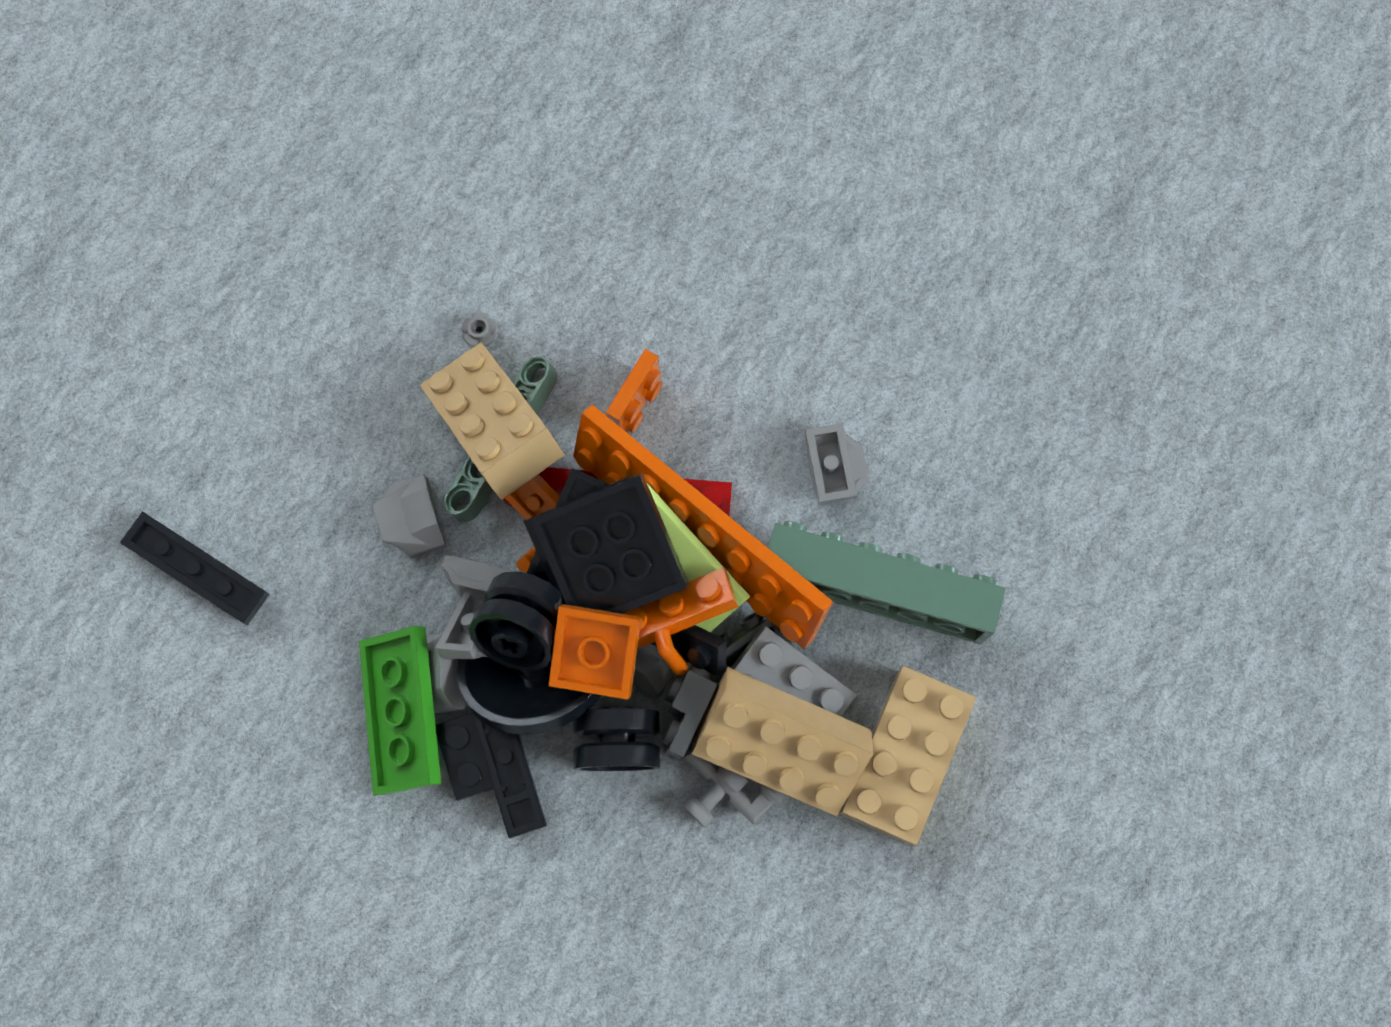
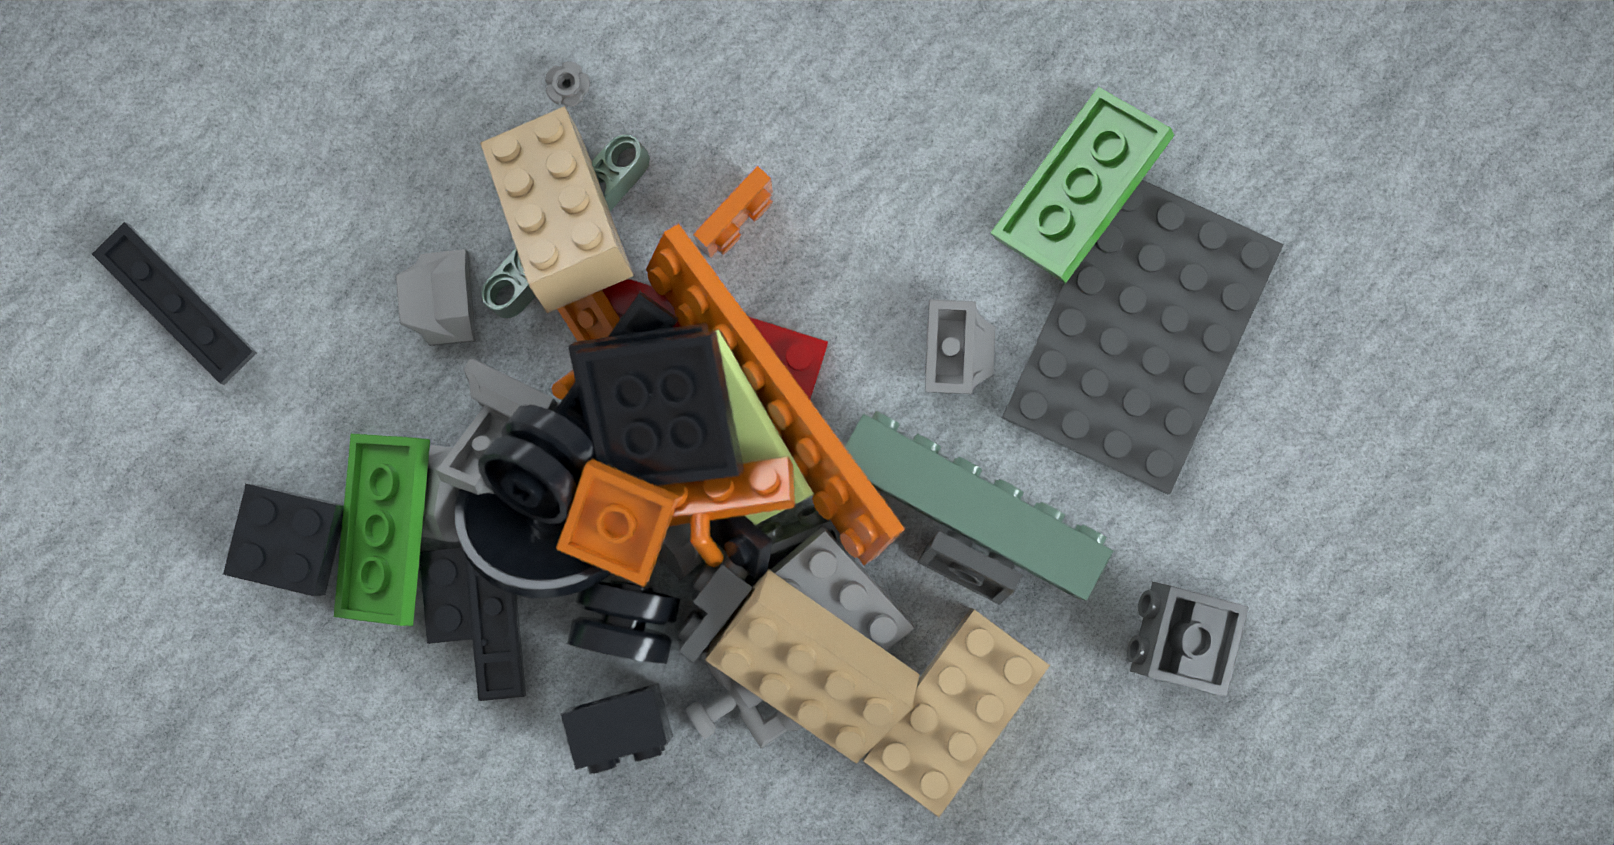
camera: 15 degrees right, 10 degrees up
(320, 738) = (284, 540): none -> black brick
(629, 831) = (617, 728): none -> black brick
(890, 632) = (956, 560): none -> dark grey plate
(903, 316) = (1082, 184): none -> bright green plate
(979, 422) = (1144, 336): none -> dark grey plate
(1080, 653) = (1187, 638): none -> dark grey plate

